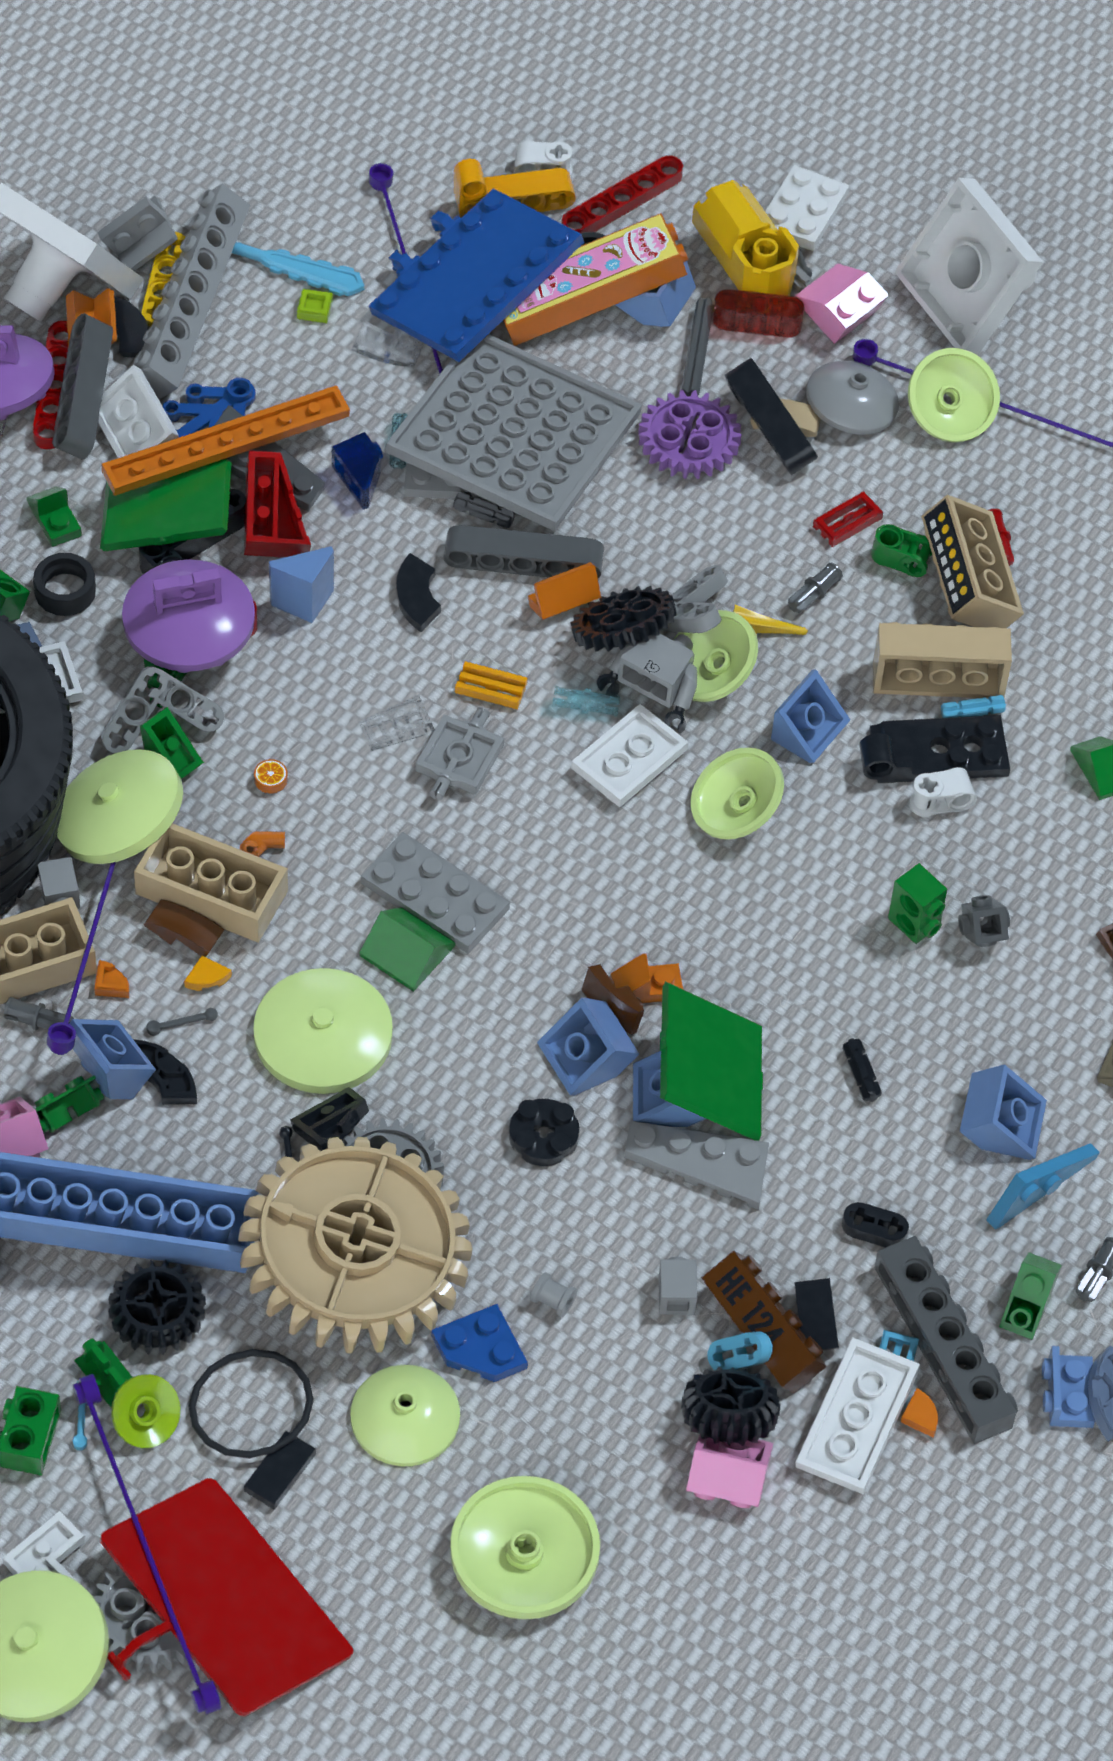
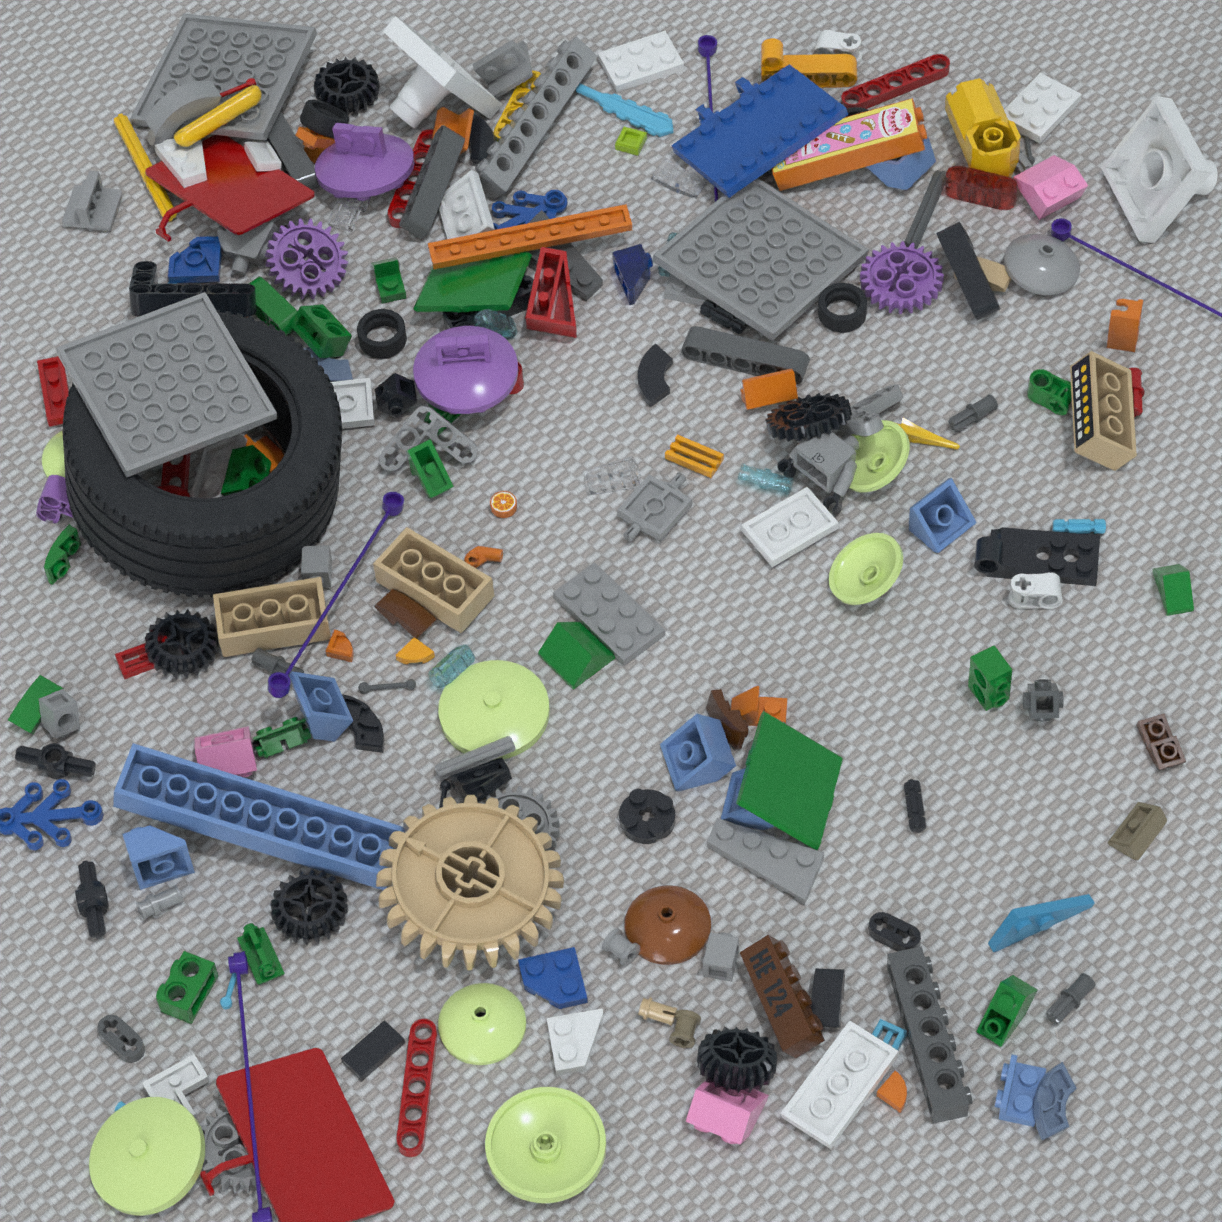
camera: 20 degrees right, 0 degrees up
(104, 659) = (395, 395): none -> black brick
(119, 806) = (376, 511): yellowish green dish -> none
(160, 1412) = (292, 991): lime dish -> none
(208, 550) = (496, 322): none -> clear light blue beam
(258, 984) = (451, 666): none -> clear light blue beam
(262, 1451) = (332, 1027): black piece -> none
(302, 205) = (640, 61): none -> white plate
(302, 582) = (563, 355): medium blue slope -> none
(317, 1092) = (475, 757): none -> light grey axle
(351, 1521) = (417, 1100): none -> red beam
(521, 1416) = (573, 1039): none -> white wing
(601, 1276) = (671, 938): none -> dark orange dish
(617, 1365) = (657, 1011): none -> tan pin
(627, 461) = (846, 292): none -> black tyre
(655, 1380) = (685, 1028): none -> dark tan bush
(738, 1345) = (755, 1012): medium azure beam -> none
(851, 522) = (1017, 363): red tile -> none
(941, 660) = (1058, 484): tan brick -> none
(968, 384) = (1134, 259): yellowish green dish -> none
(973, 459) = (1125, 325): none -> orange hinge
(1003, 1113) = (1021, 859): medium blue slope -> none

